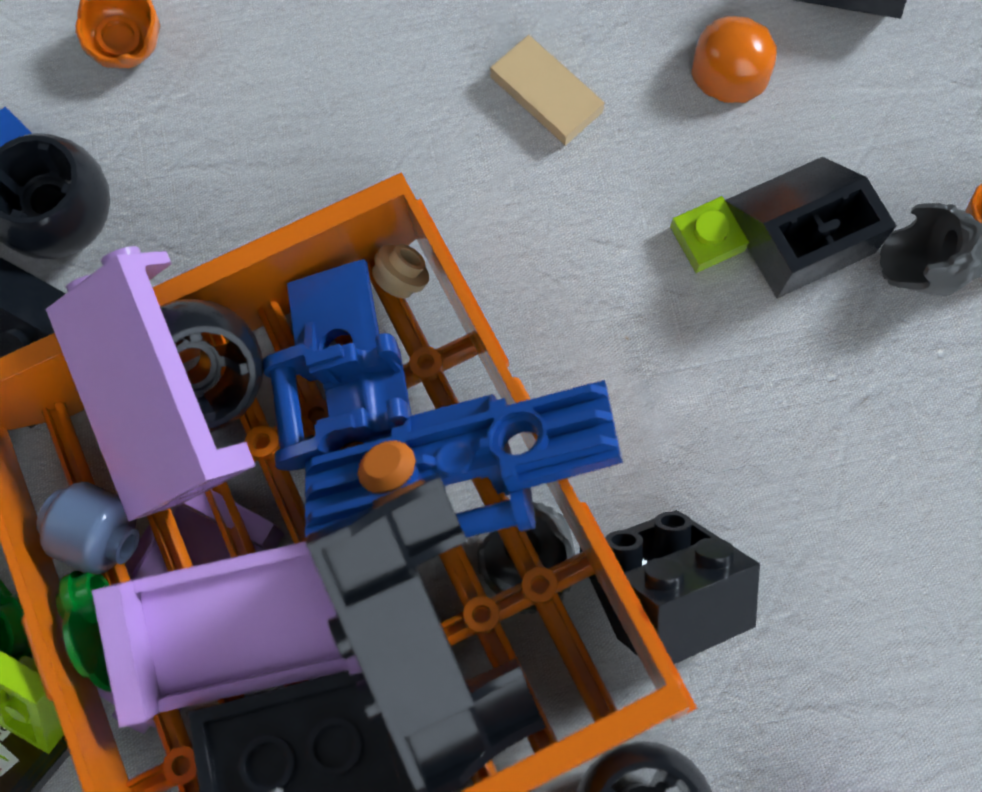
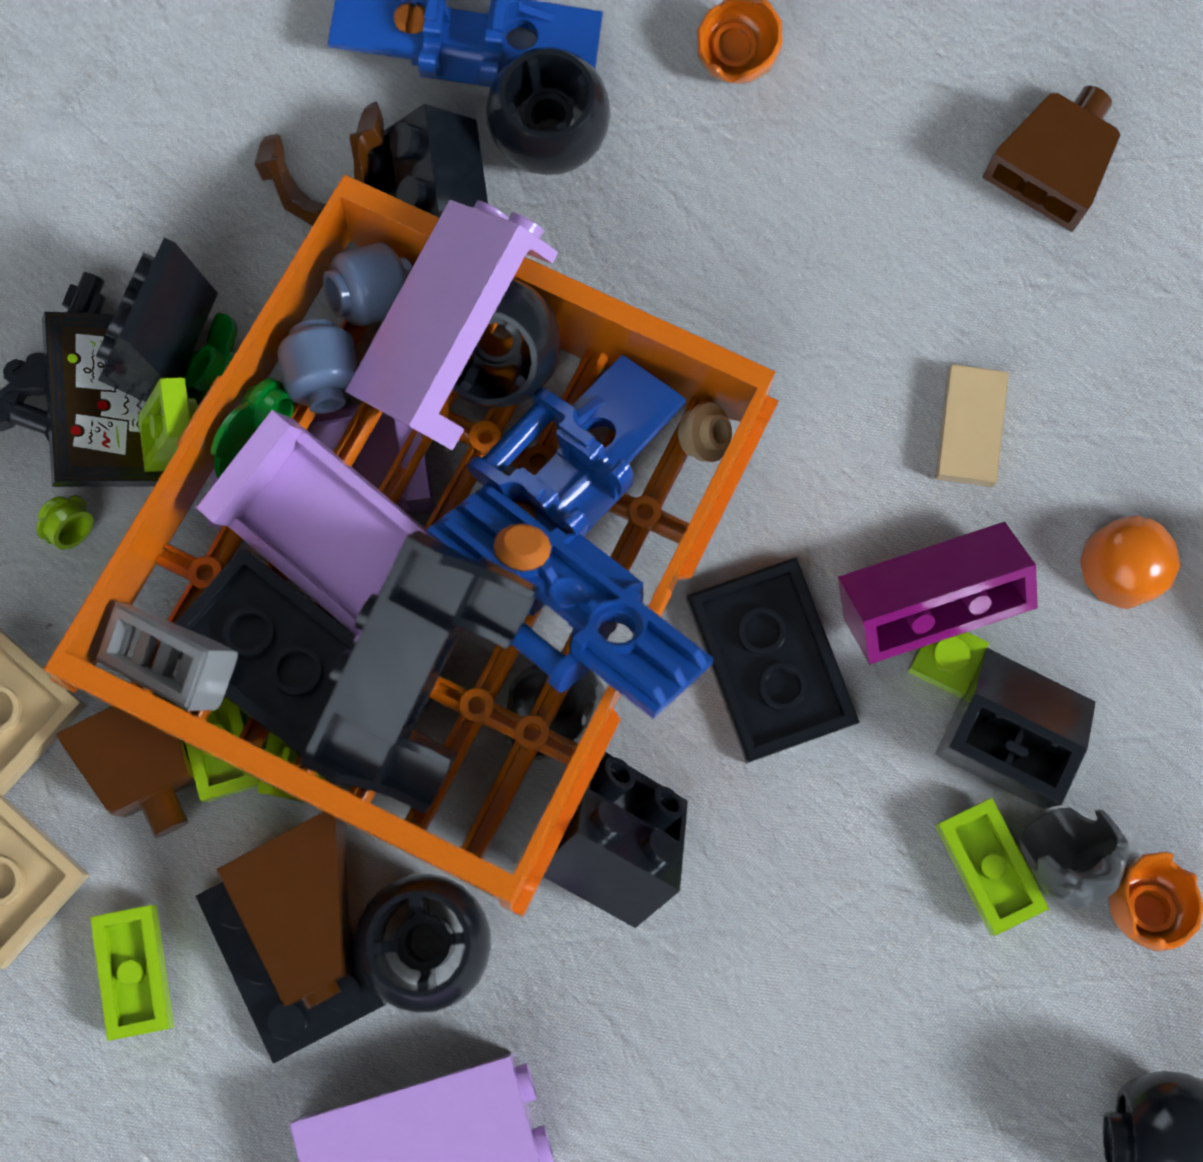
camera: 50 degrees right, 5 degrees up
(53, 438) = (365, 282): none -> sand blue head
(643, 358) = (772, 660): none -> black tile
(658, 200) = (938, 592): none -> magenta brick
(896, 320) = (991, 867): none -> lime plate

